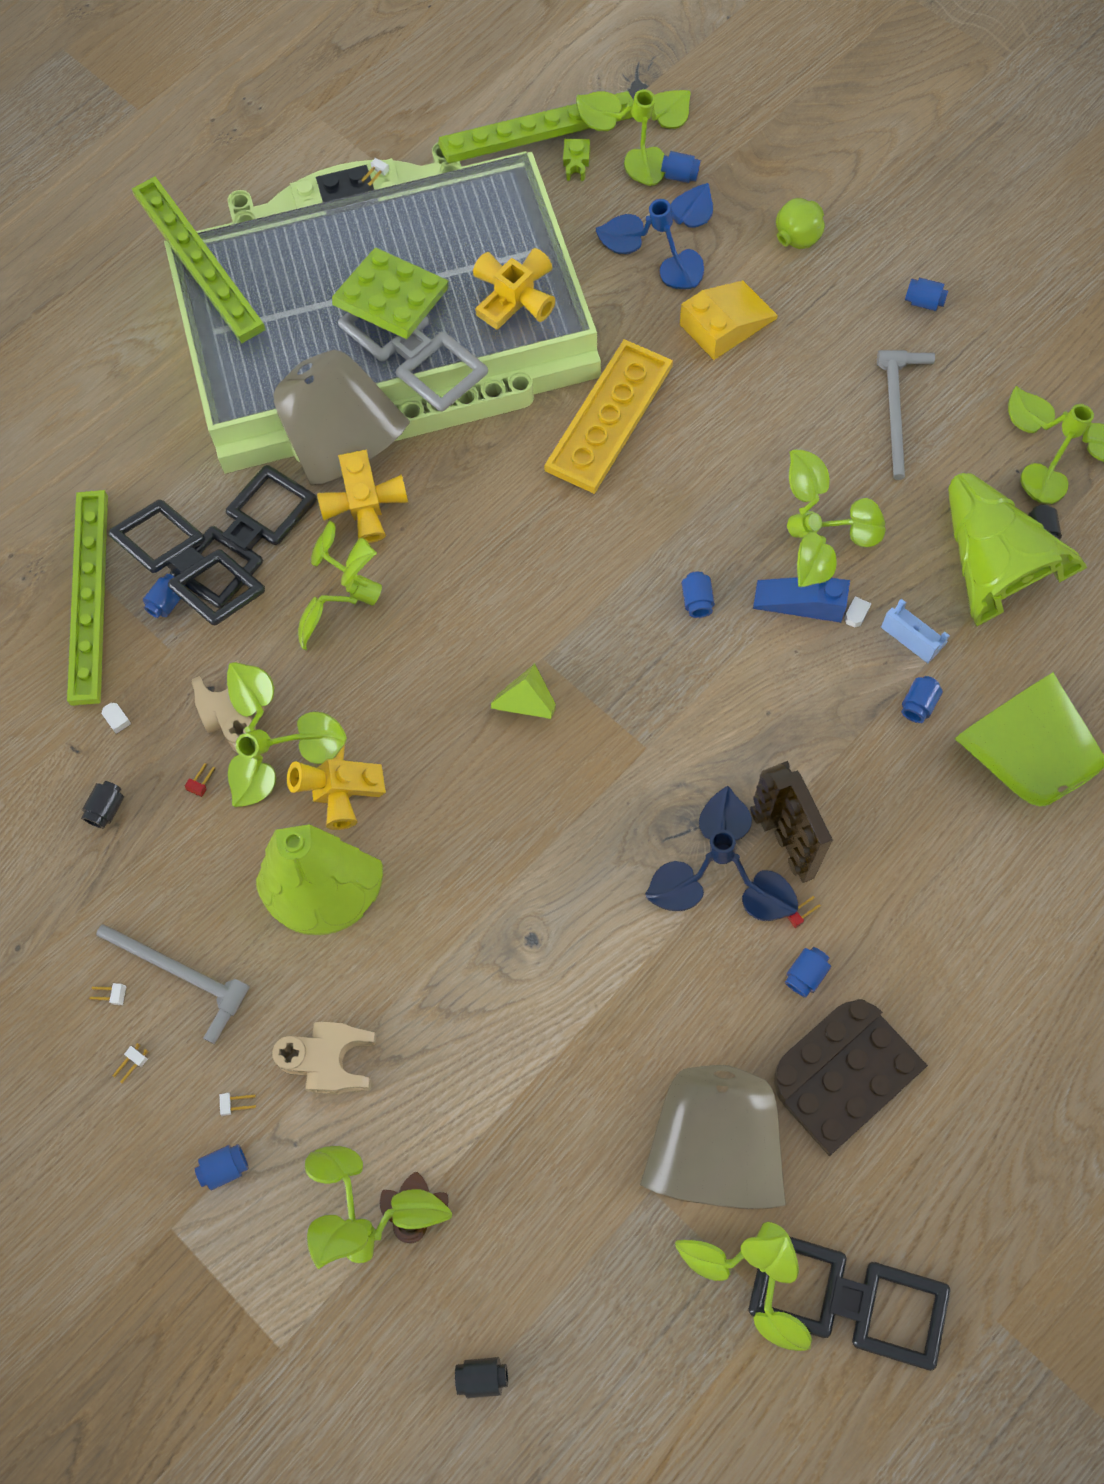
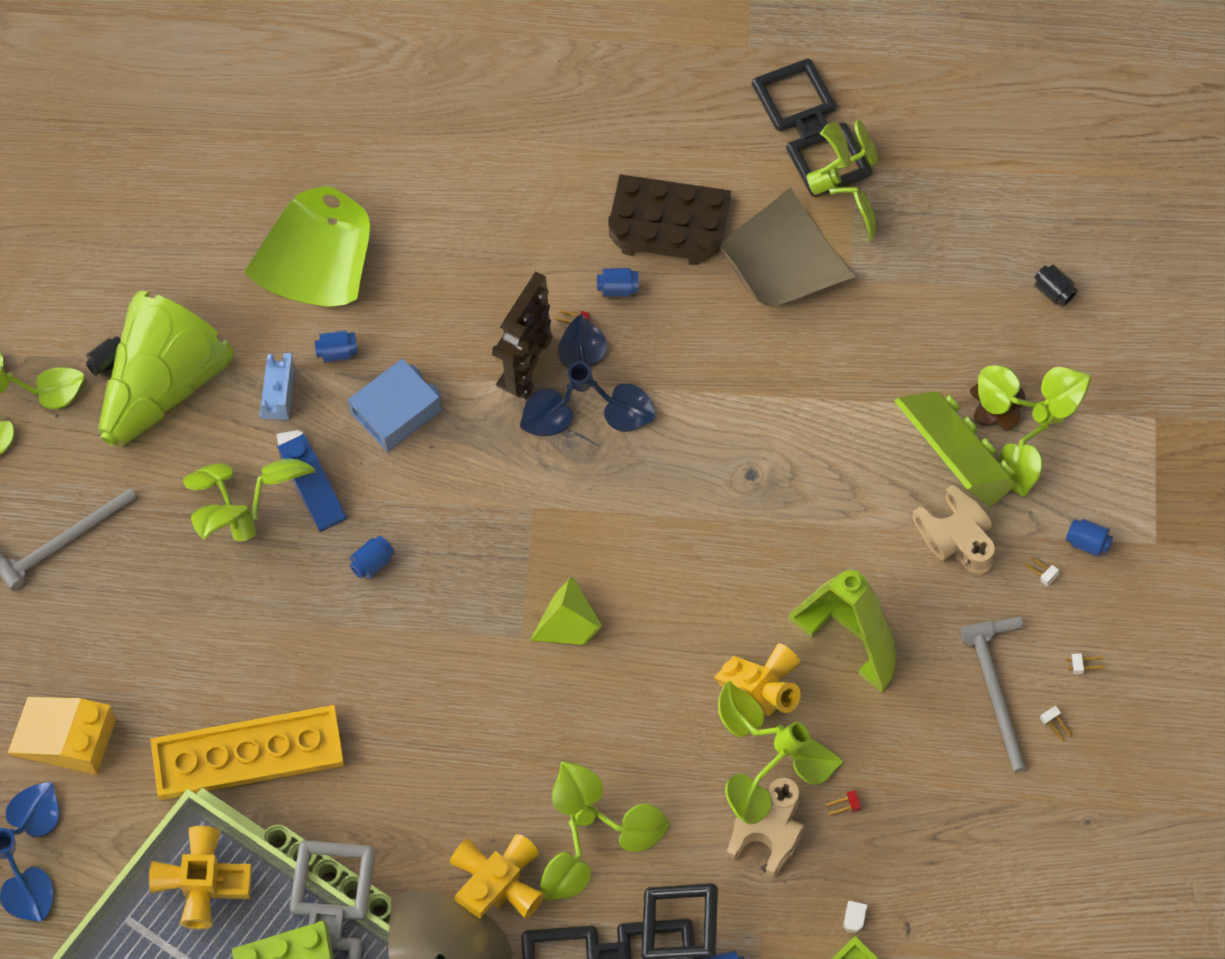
camera: 130 degrees left, 5 degrees down
(102, 804) = (931, 851): black brick -> none
(389, 1109) = (959, 445): none -> lime slope
(826, 704) = (395, 404): none -> medium blue brick

